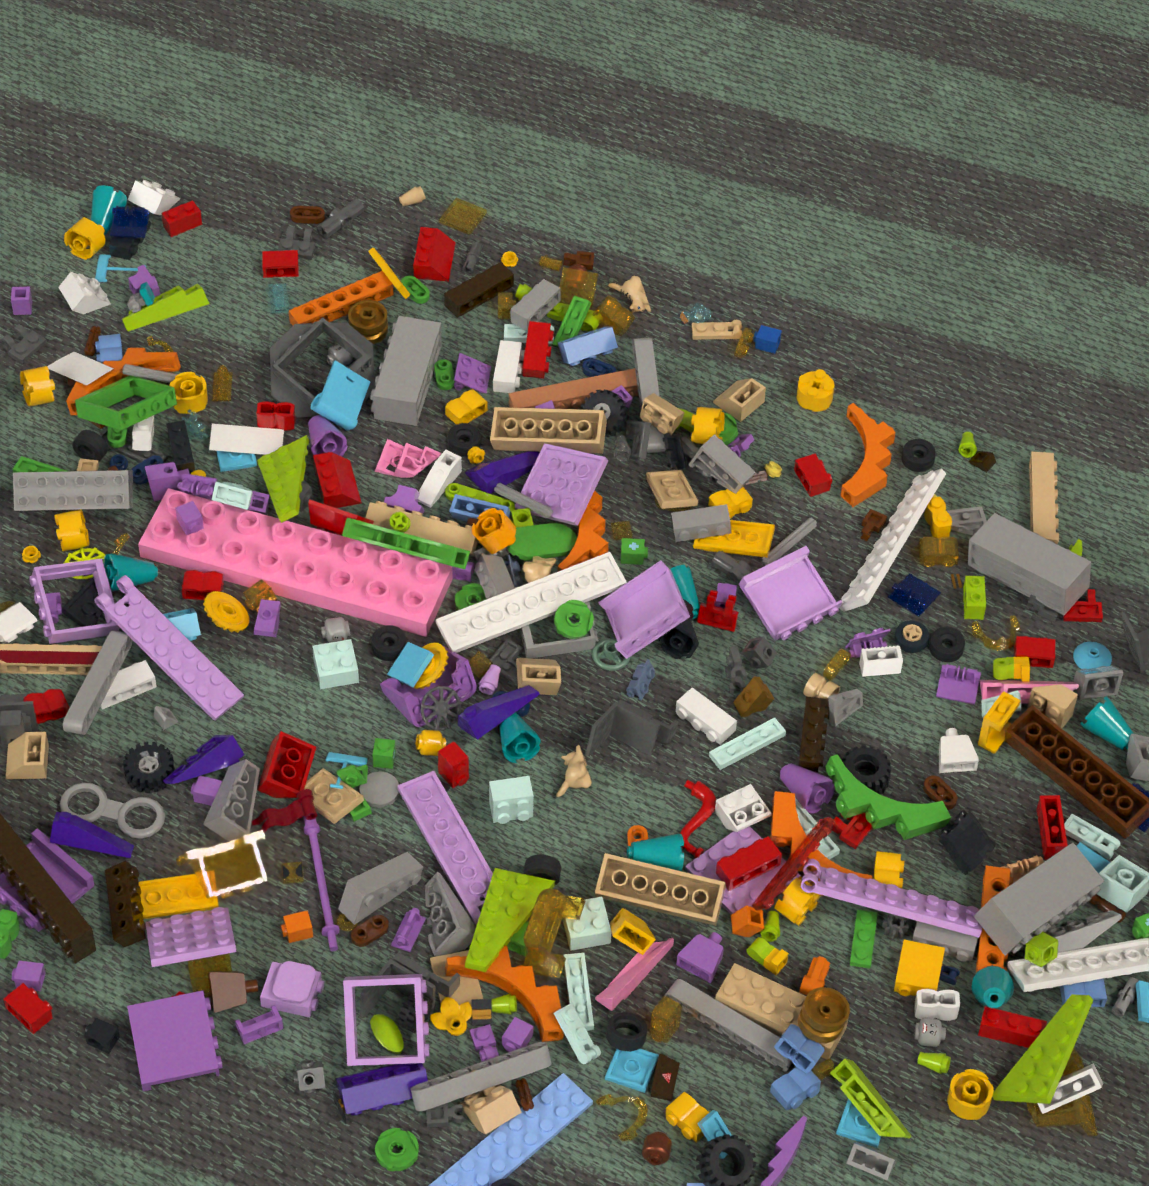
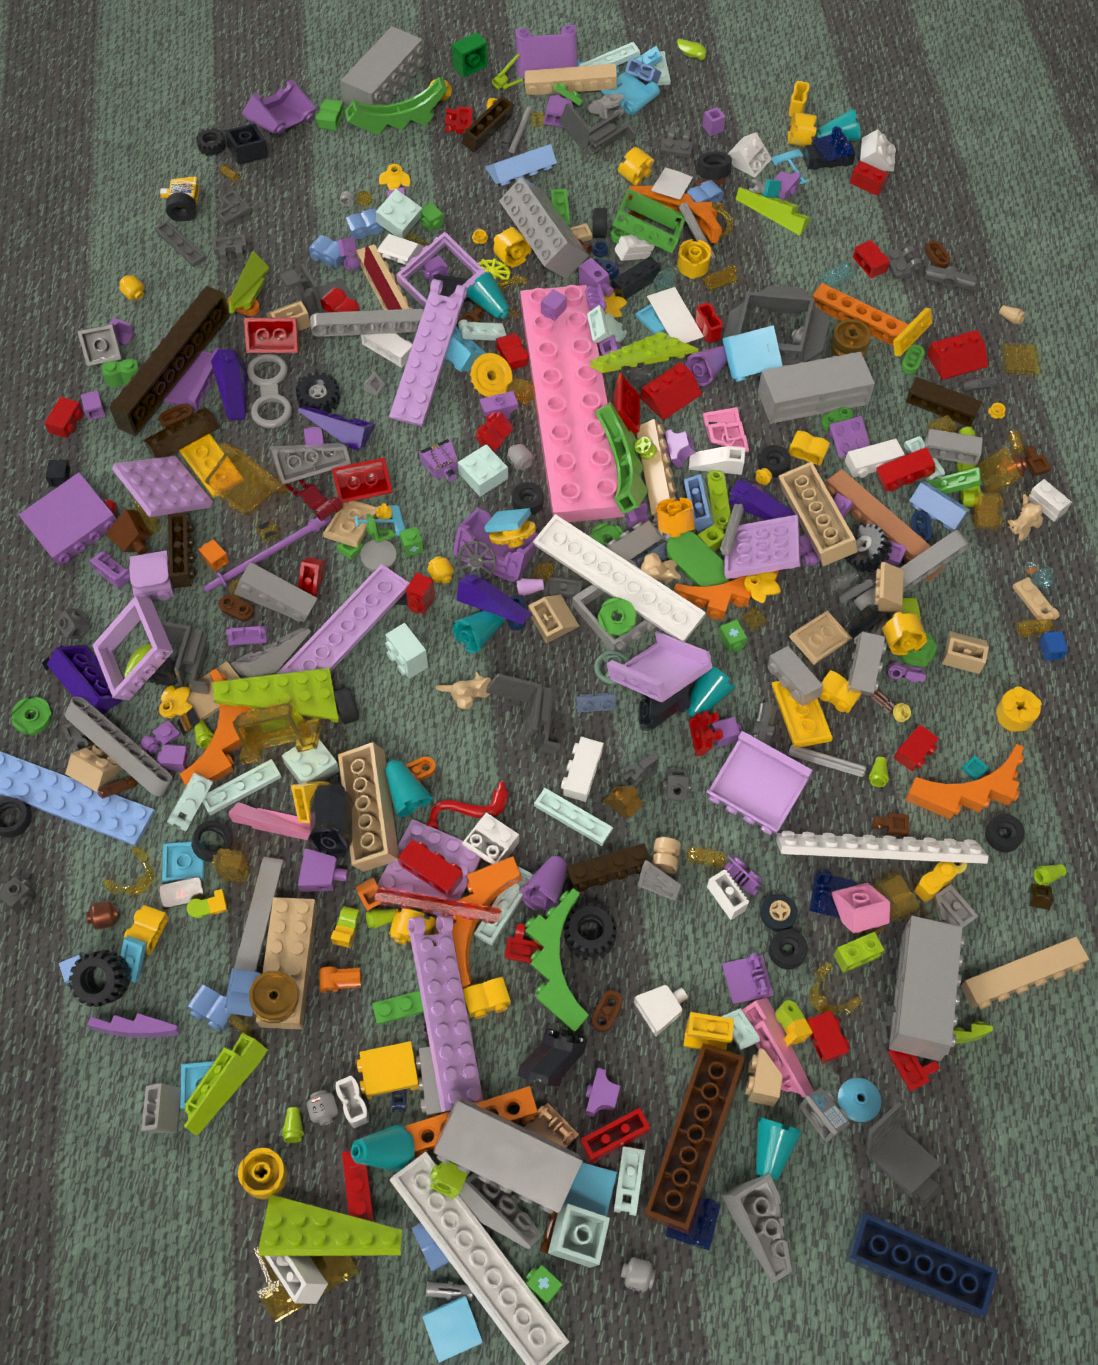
camera: 65 degrees right, 10 degrees up
(42, 223) = (799, 97): none -> yellow brick
(53, 776) = (272, 335): none -> red slope
(83, 334) = (714, 165): none -> black tyre
(93, 905) = (175, 414): none -> reddish brown plate
(164, 595) = (481, 331): none -> light aqua plate
(271, 948) = (180, 550): none -> dark brown brick
(295, 636) = (494, 431): none -> red brick
(301, 694) = (440, 460): none -> medium lavender torso
(333, 760) = (384, 511): none -> yellow plate
(372, 848) = (311, 575): none -> red slope
(601, 504) = (764, 585): none -> yellow plate
(623, 269) = (1051, 500): none -> white brick
(666, 916) = (331, 820): none -> black brick
(693, 1055) = (202, 908): none -> leg
(822, 511) = (879, 772): none -> lime cone
(850, 447) = (975, 768): none -> teal tile
(937, 576) = (862, 907): none -> bright pink slope
(1010, 824) = (601, 1094): none -> medium lavender brick

